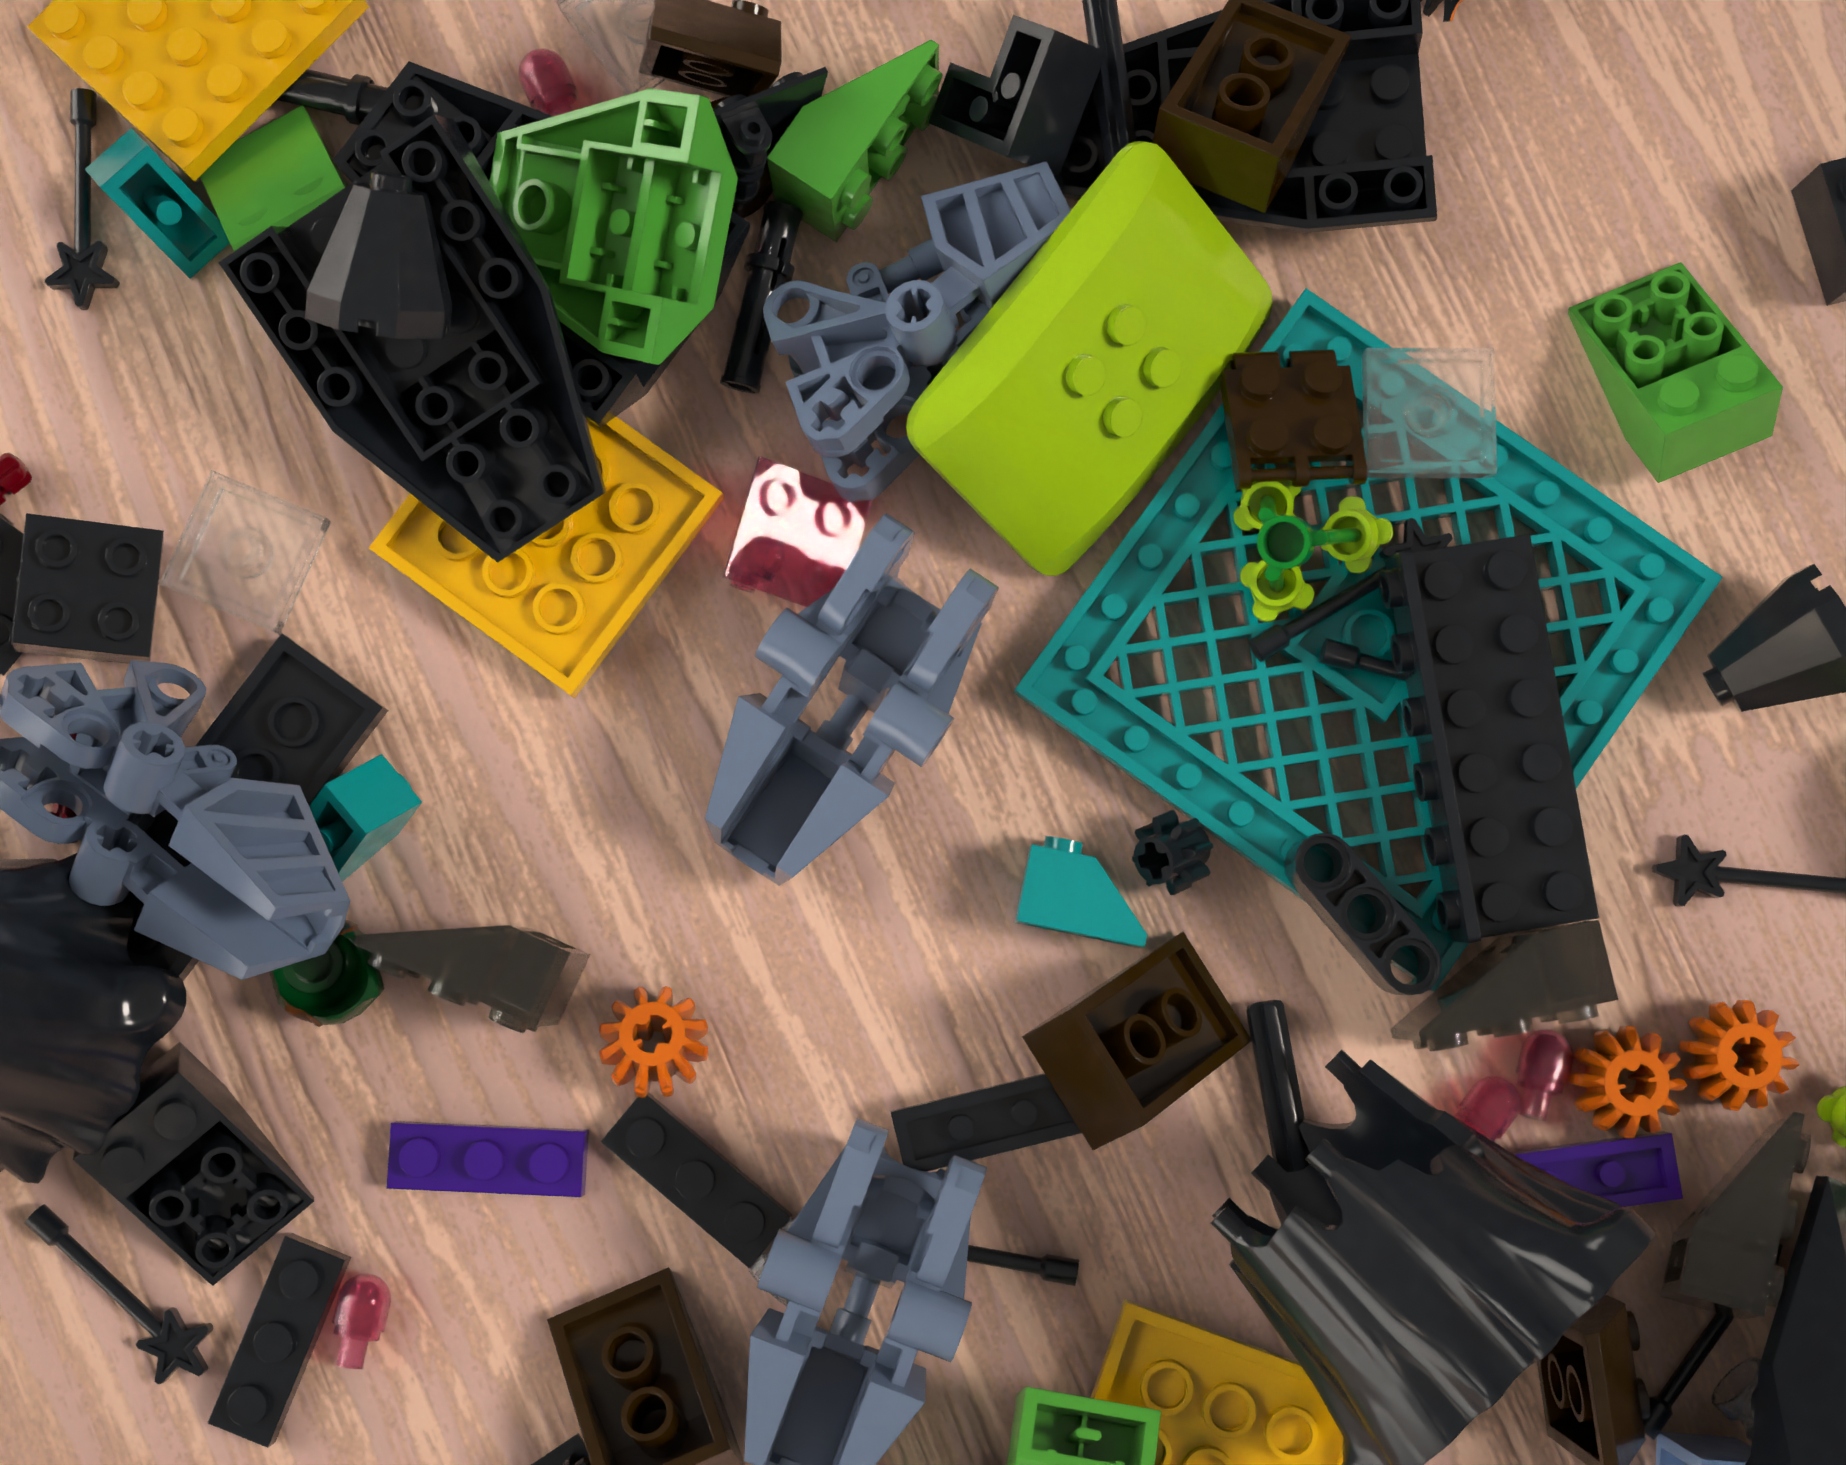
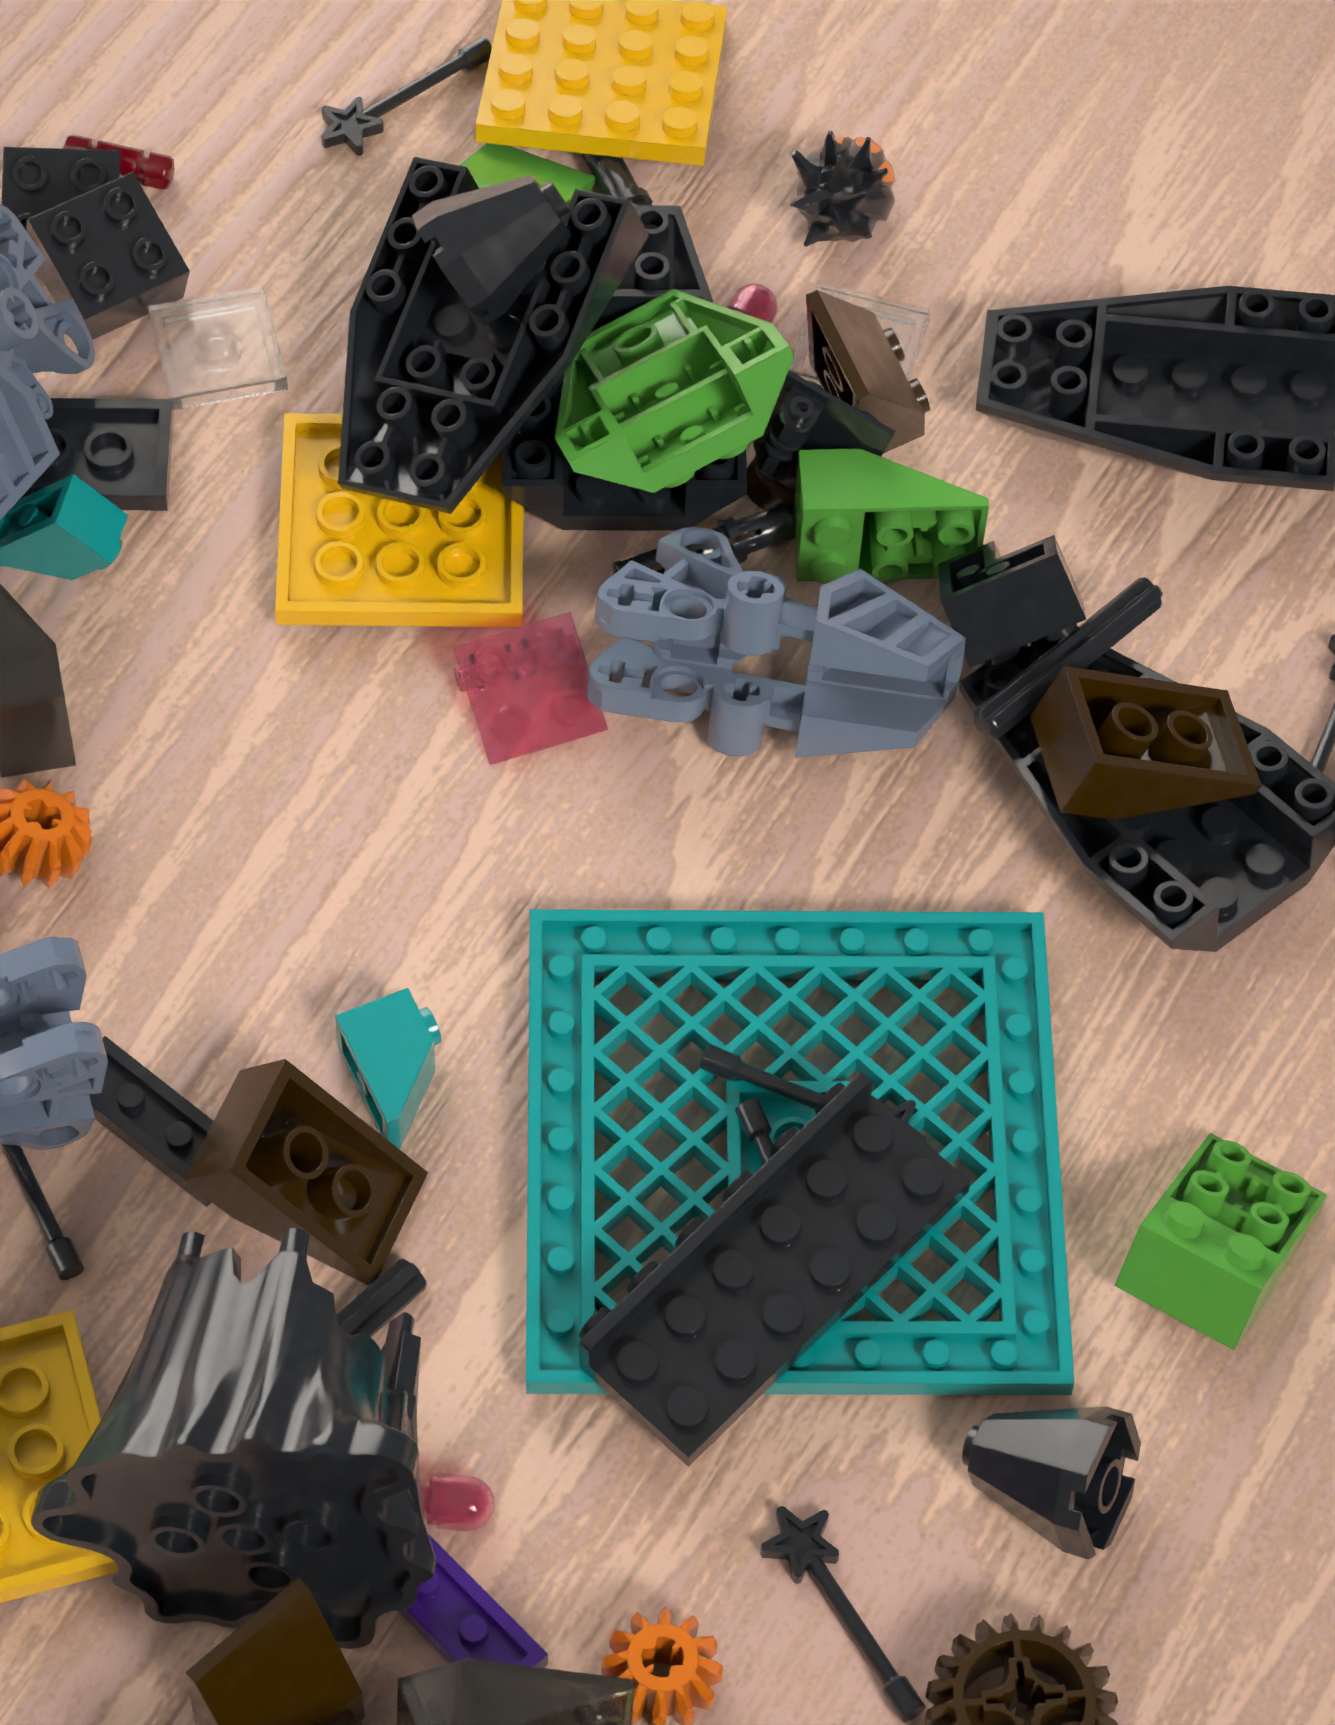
camera: 50 degrees right, 25 degrees down
(159, 203) = (443, 119): teal slope -> none
(797, 791) = (314, 766): sand blue piece -> none
(1092, 362) = (839, 780): lime wedge -> none
(1172, 852) = (486, 1107): black gear -> none
(1289, 542) = (804, 980): lime plant -> none
(1292, 418) = (919, 949): dark brown plate -> none
(1392, 924) = (536, 1292): black beam -> none
(1429, 412) = (1012, 1055): clear plate -> none
(1518, 977) = (572, 1419): clear smoke slope -> none
(1543, 1071) = (524, 1525): clear pink cylinder -> none
(1651, 1074) = (592, 1584): orange gear -> none

